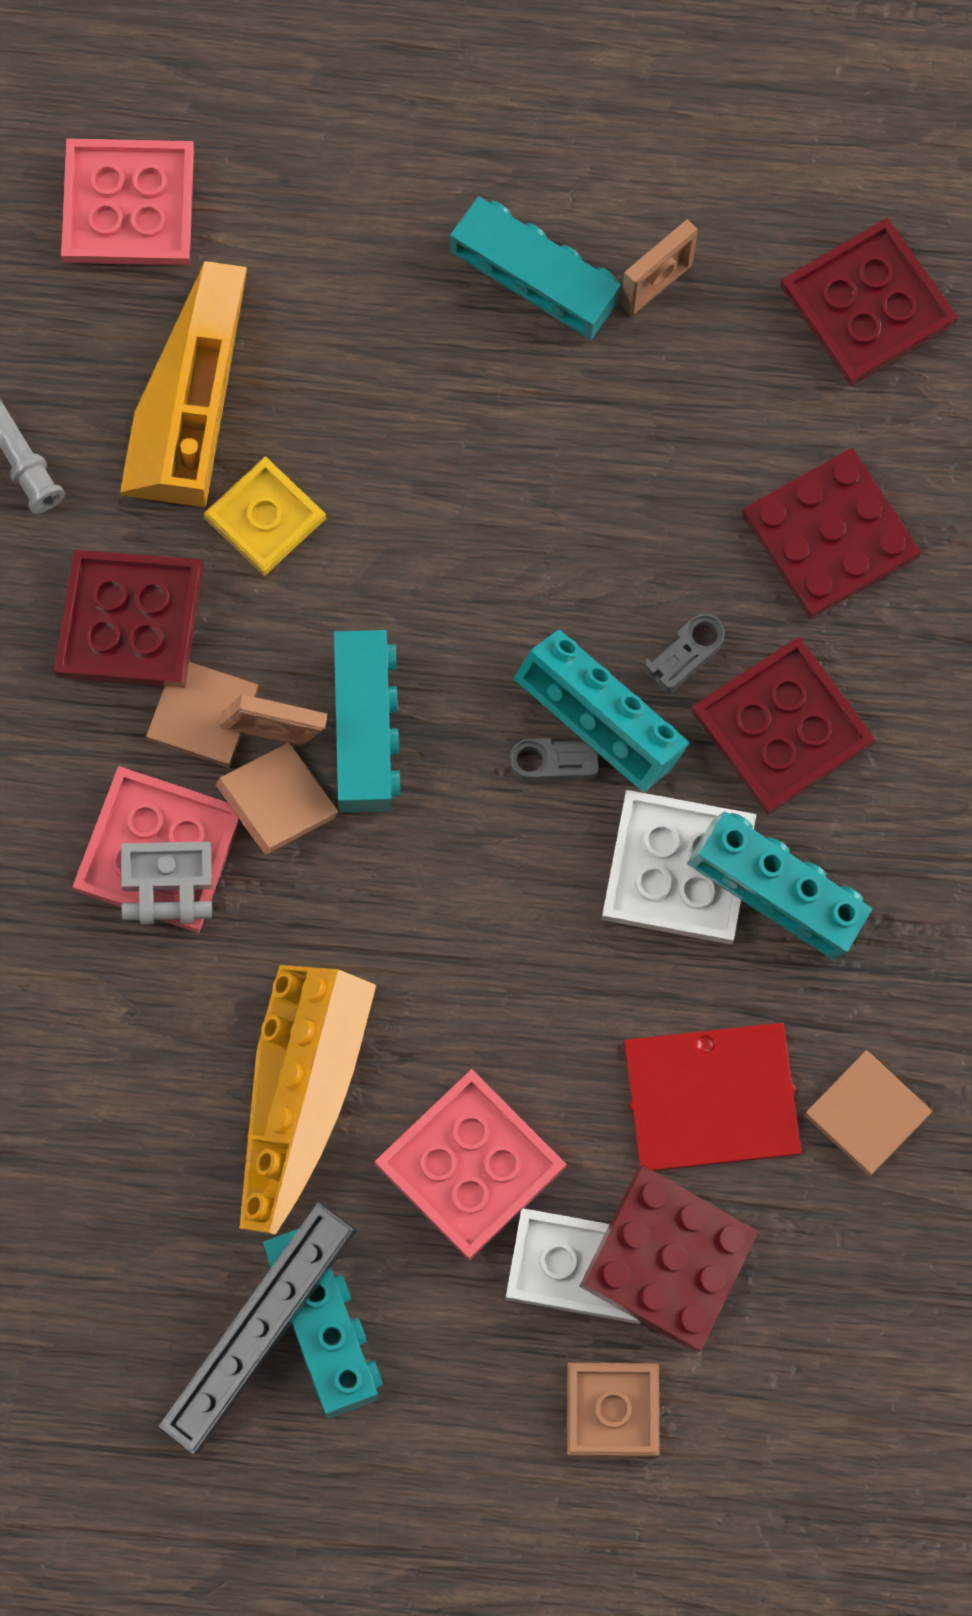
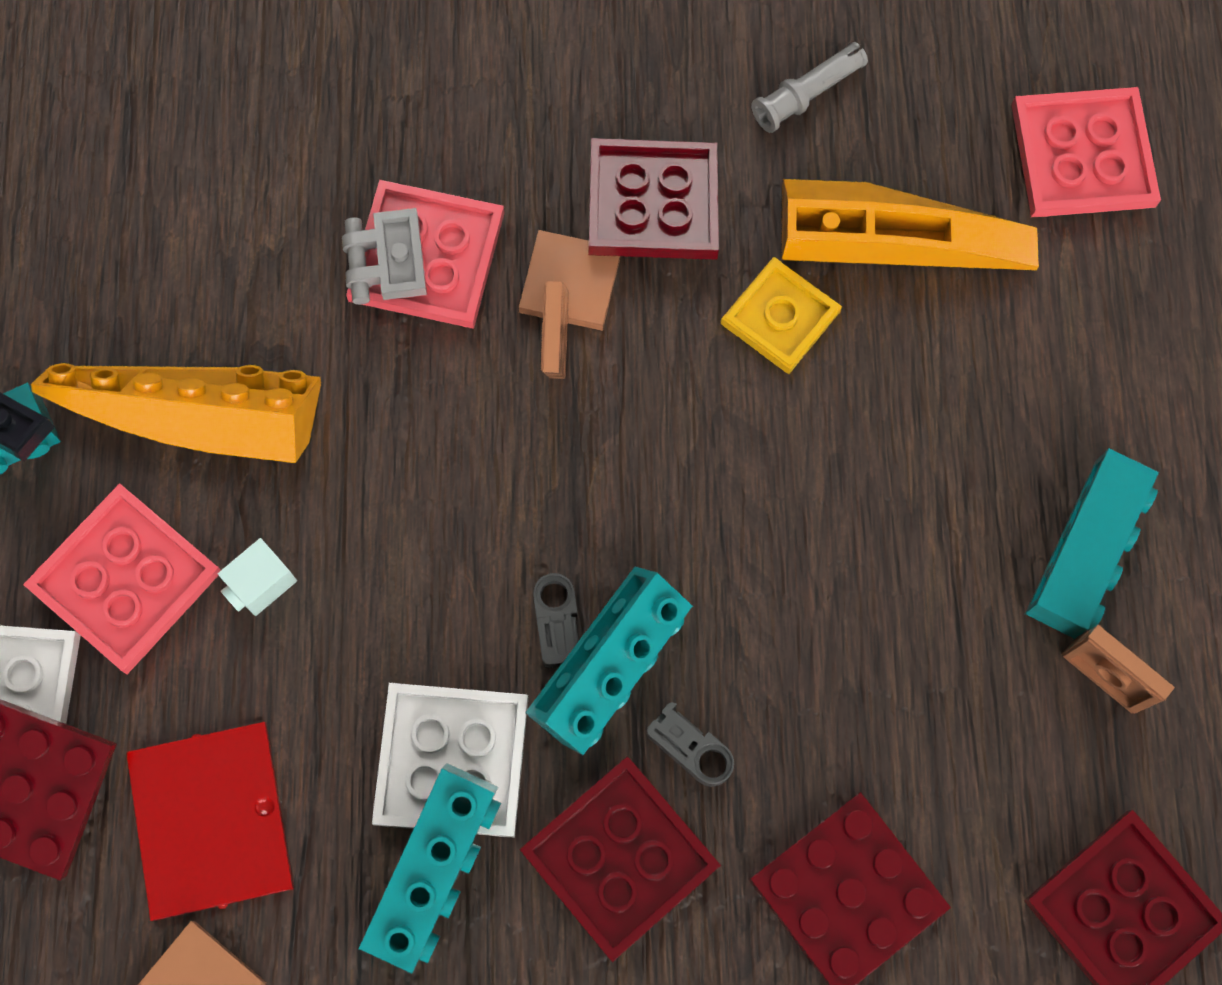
camera: 85 degrees right, 0 degrees up
(276, 798) = (485, 352): nougat tile -> none
(363, 721) = (572, 423): teal brick -> none
(485, 1034) = (255, 578): none -> light aqua brick

